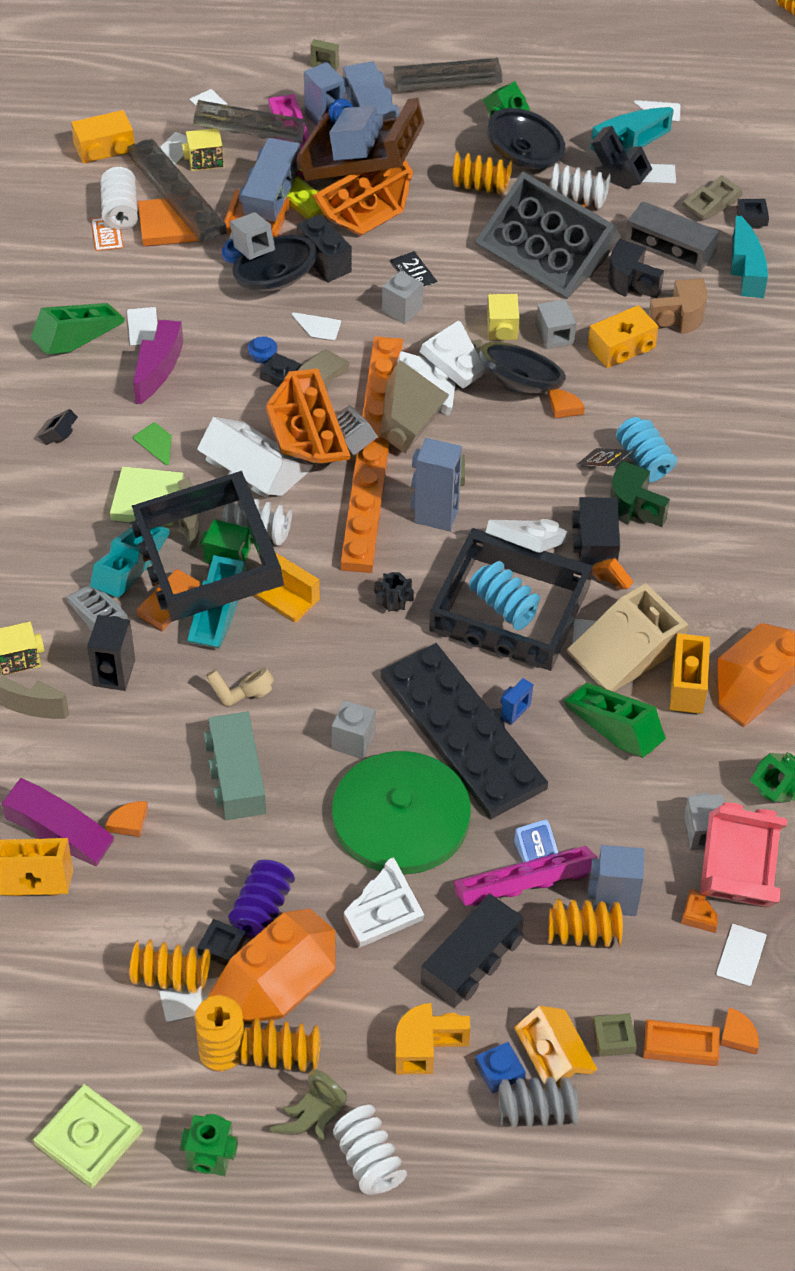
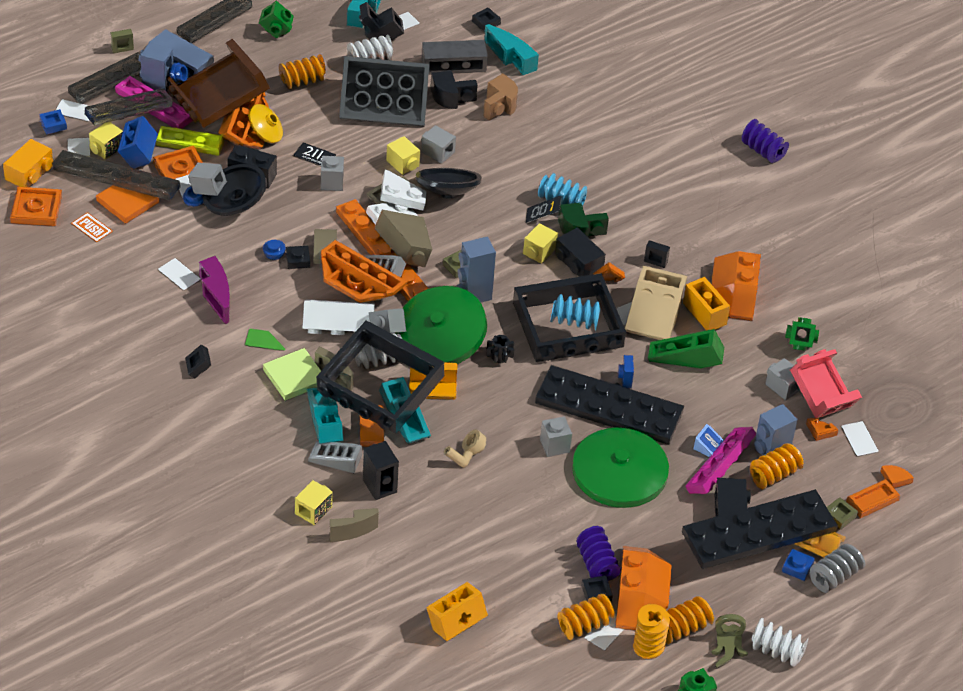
camera: 40 degrees left, 5 degrees down
(55, 818) = (436, 580): magenta slope -> none
(70, 184) = (36, 206): none -> orange tile
(70, 327) = (141, 295): green slope -> none
(119, 198) = (85, 199): white piece -> none
(128, 819) = (476, 558): orange tile -> none
(173, 106) = (53, 121): none -> blue plate
(225, 541) = (374, 373): green brick -> none
(227, 165) = (137, 142): none -> blue brick
(235, 766) = (510, 493): sand green brick -> none
(261, 87) = (105, 79): none -> clear smoke plate
(270, 179) = (177, 137): sand blue brick -> none
(285, 489) = (389, 320): none -> light grey brick
(318, 326) = (290, 218): white sticker -> none
(347, 529) = (445, 323): none -> green dish
(355, 132) = (215, 80): sand blue brick -> none
(374, 213) = (265, 123): none -> yellow dish
(383, 907) = (663, 519): white wing -> none
(421, 1032) = (750, 575): light orange brick -> none
(475, 990) = (759, 529): none -> black plate
(525, 138) = (312, 36): black dish -> none
(530, 534) = (548, 273): white wing -> none
(560, 494) = (540, 243): none -> light yellow brick
(565, 404) = (487, 190): orange tile -> none
(622, 336) = (485, 132): light orange brick -> none
(692, 580) = (656, 254): none -> black plate
(713, 199) = (453, 21): dark tan slope -> none

